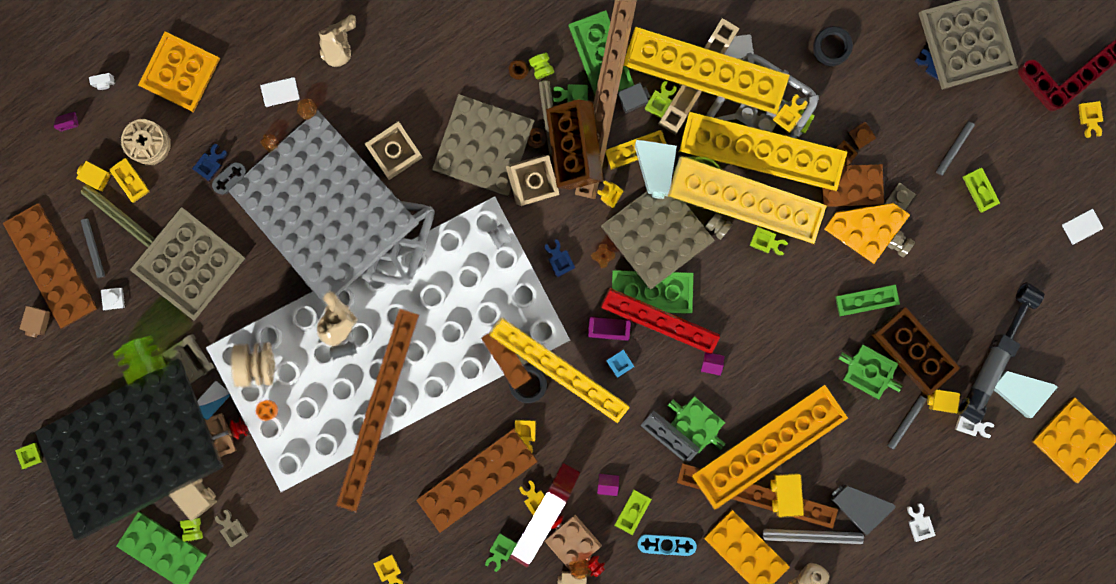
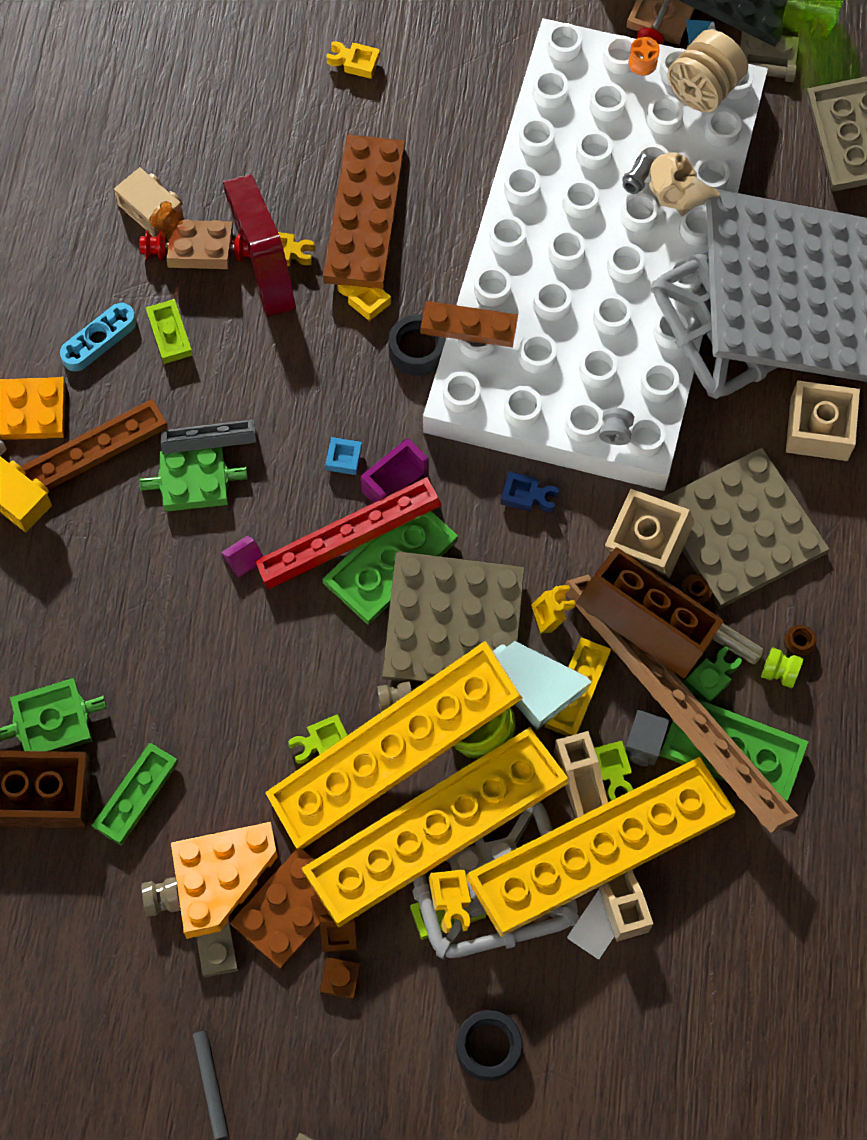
camera: 135 degrees right, 20 degrees down
(377, 410) = (541, 159): dark orange plate -> none
(501, 549) = (267, 174): bright green plate -> none
(559, 369) = (401, 370): yellow plate -> none
(608, 255) = (483, 552): clear orange plate -> none
(608, 484) = (225, 334): magenta slope -> none
(769, 447) = (85, 529): light orange plate -> none
(981, 190) = (126, 1065): lime plate -> none

